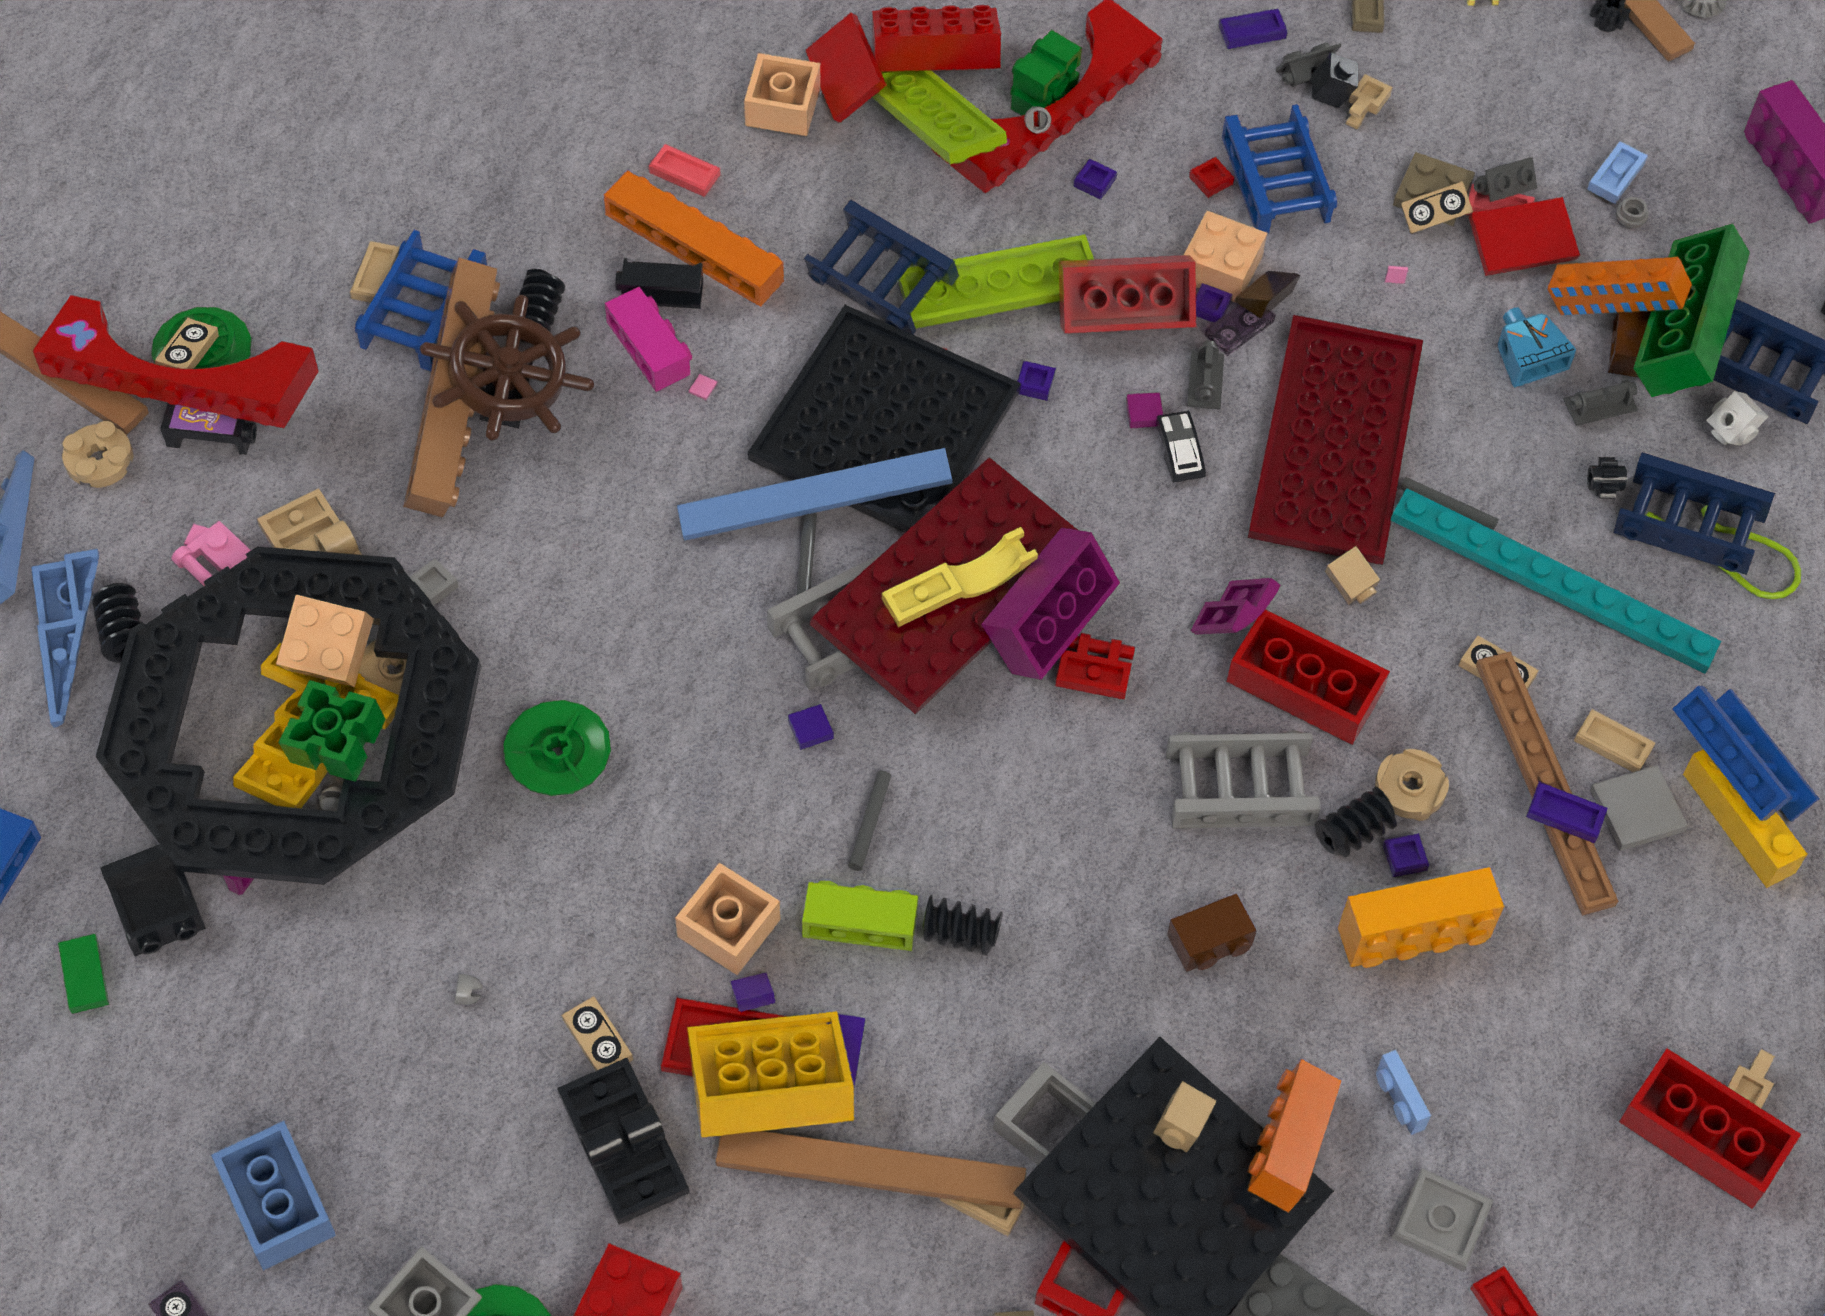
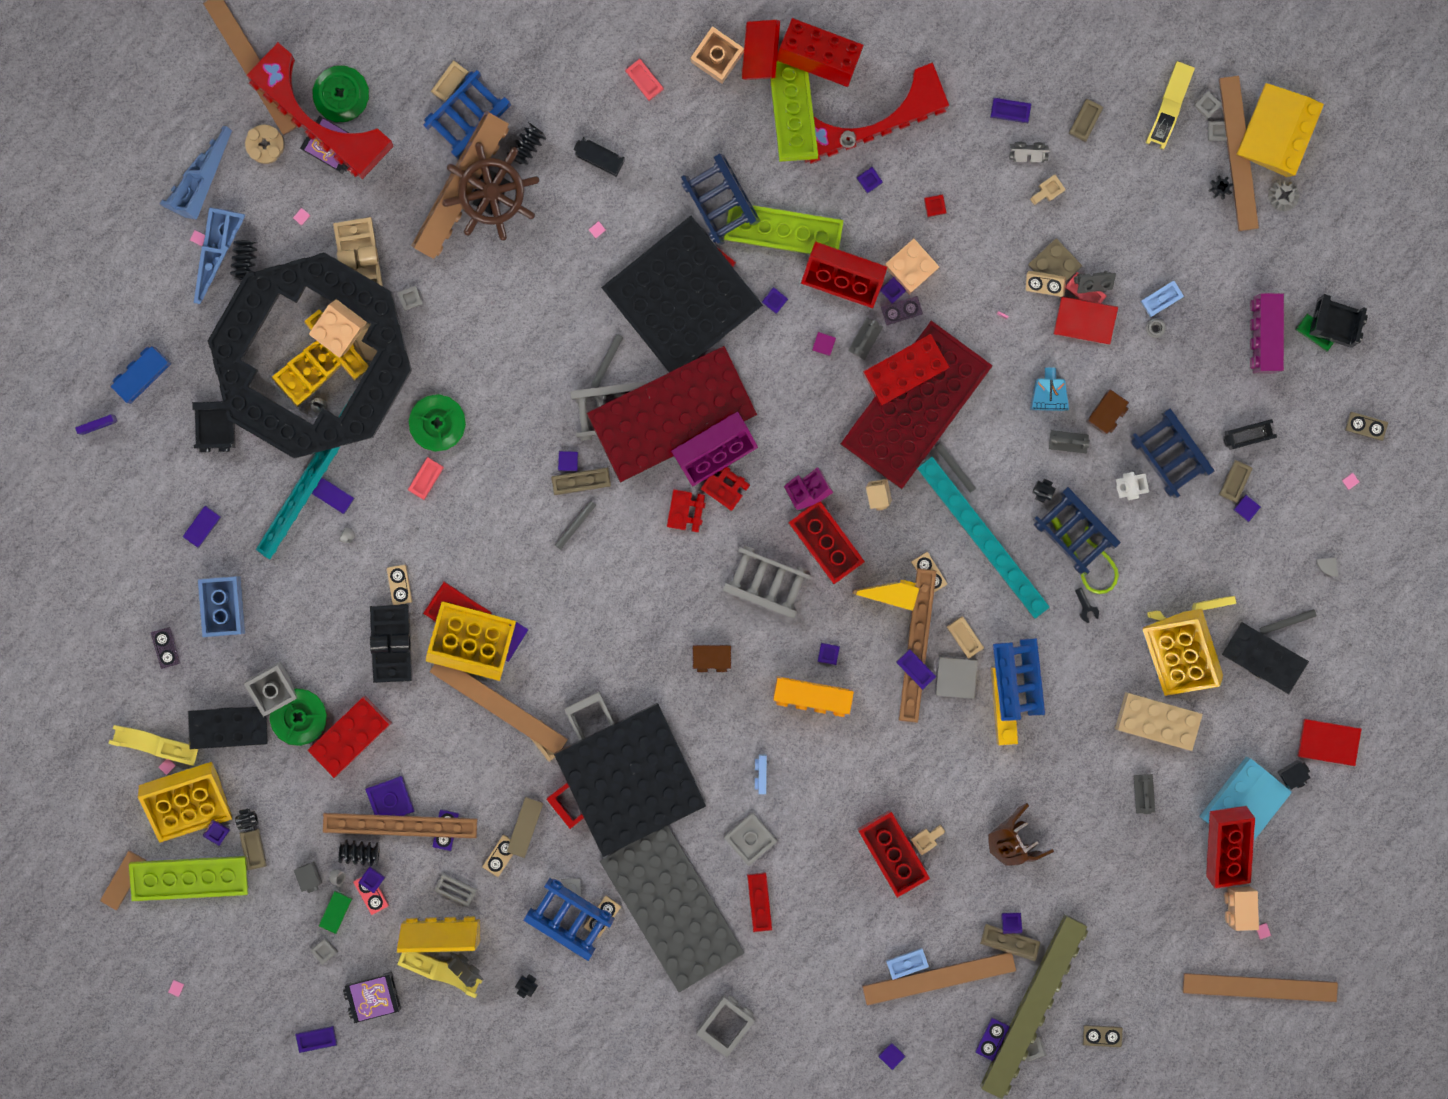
camera: 25 degrees right, 30 degrees up
(26, 629) = (198, 238): none -> bright pink window
(83, 973) = (170, 449): green tile -> none
(187, 1080) = (201, 526): none -> dark purple tile
(188, 345) = (329, 101): tile -> none
(215, 545) = (311, 235): bright pink plate -> none
(332, 730) = (311, 386): green brick -> none
(352, 963) = (296, 501): none -> teal plate
(416, 936) = (333, 495): none -> dark purple tile
(573, 846) = (425, 478): none -> coral tile
(648, 338) = (578, 190): dark pink brick -> none
(694, 238) = (629, 133): orange brick -> none
(728, 918) = (482, 554): light nougat brick -> none
(752, 992) = (480, 594): dark purple tile -> none
(814, 494) = (624, 329): medium blue tile -> none
(847, 750) = (581, 481): none -> dark tan tile
(860, 915) = (548, 576): lime brick -> none
(961, 926) = (592, 603): black piece -> none
(967, 580) = (670, 421): light yellow piece -> none
(1037, 731) = (679, 510): none -> red plate
(1045, 73) = (869, 106): green brick -> none
(1181, 446) = (831, 376): slope -> none
(1184, 1117) = (646, 753): tan brick -> none
(1255, 186) = (958, 206): blue fence -> none
(1267, 292) = (924, 298): dark brown slope -> none
(1294, 1135) = (696, 778): orange brick -> none
(1295, 383) = (905, 370): none -> red brick
(1335, 80) = (1034, 173): black brick -> none
(1356, 821) = (811, 630): black piece -> none
(1427, 770) = (861, 619): tan plate -> none
(1460, 693) = (895, 593): none -> yellow slope
(1620, 286) = (1109, 385): orange brick -> none
(1686, 343) = (1141, 416): green brick -> none
(1778, 623) = (1085, 605): none -> black bar

